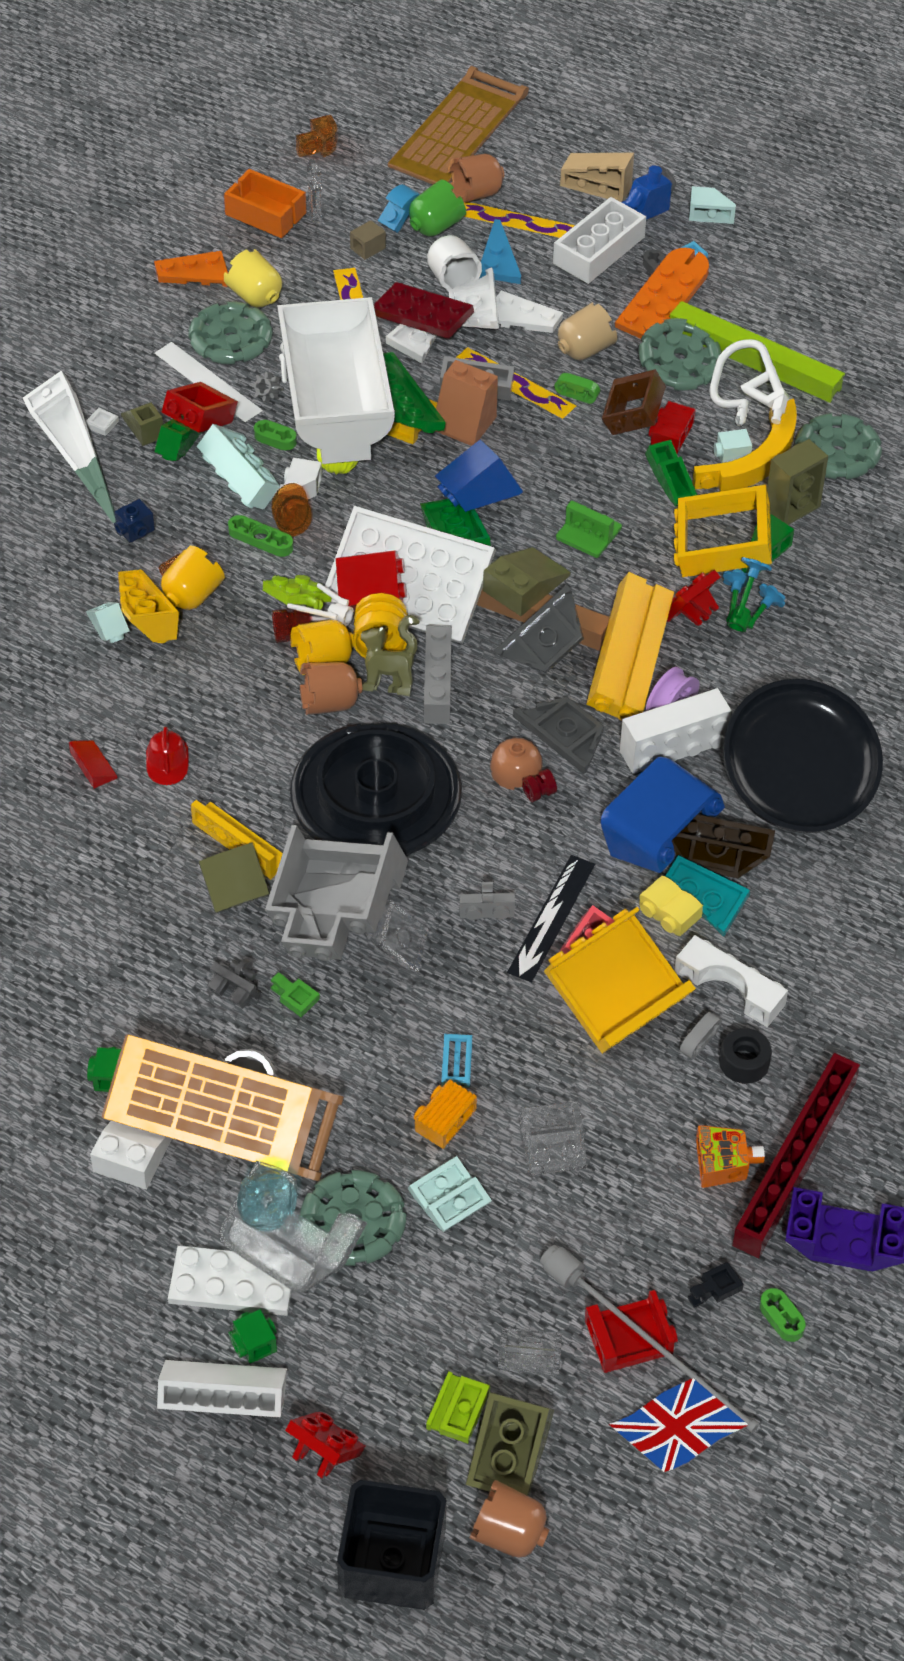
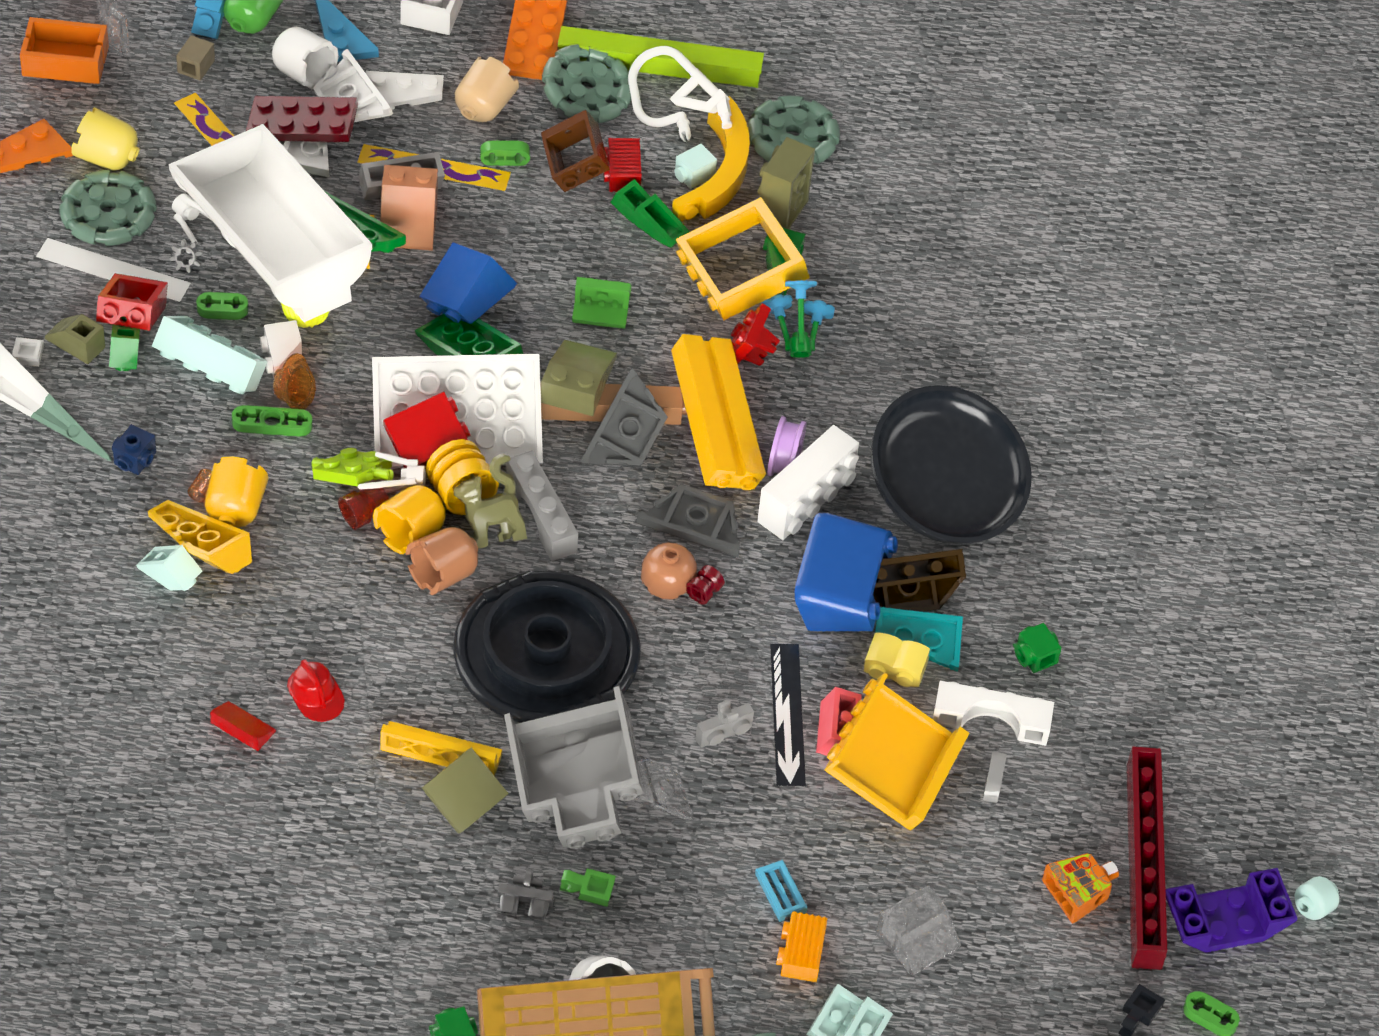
camera: 30 degrees left, 0 degrees up
(745, 1070) = (1043, 795): black tyre -> none
(804, 940) = (1037, 648): none -> green brick

